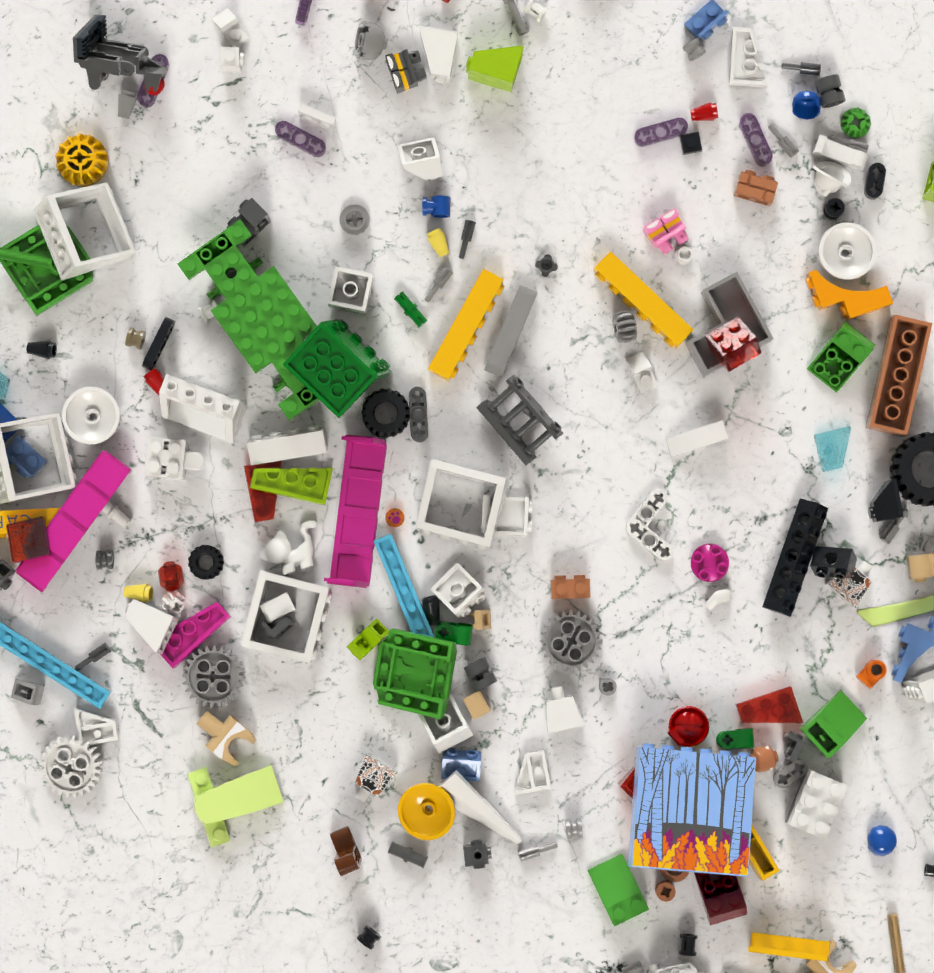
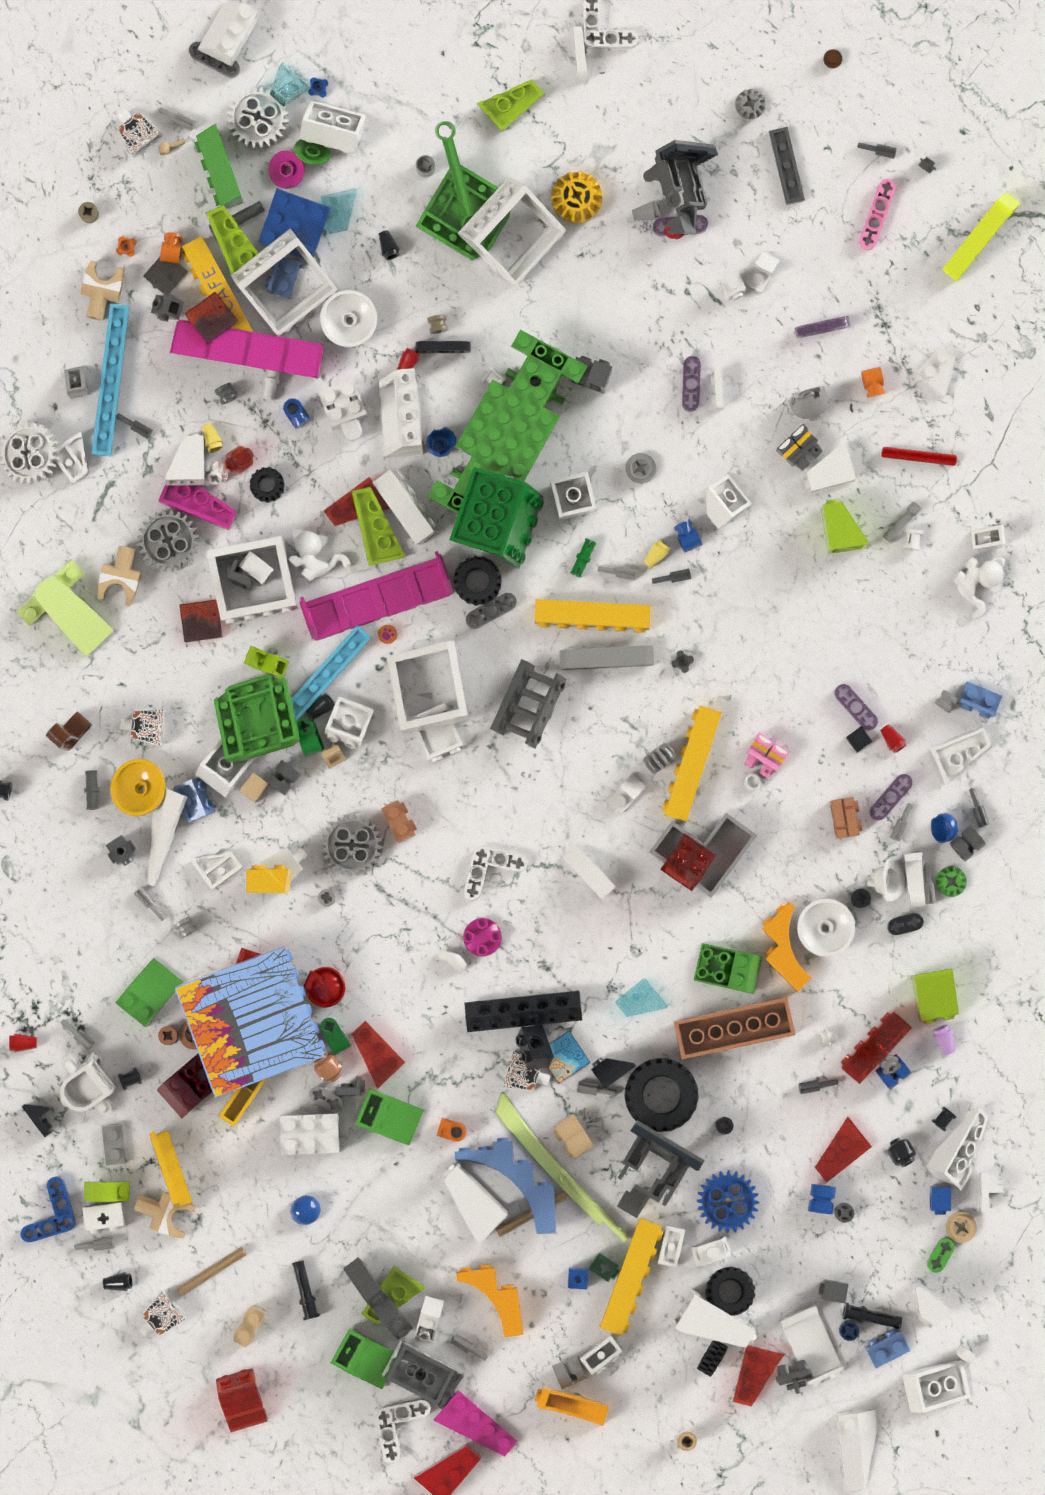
camera: 70 degrees right, 0 degrees up
(160, 504) = (300, 417): none -> blue piece
(244, 386) = (441, 442): none -> blue hair
(301, 681) = (200, 621): none -> clear red tile
(569, 732) = (268, 880): none -> yellow slope
(854, 536) = (567, 1057): none -> tile

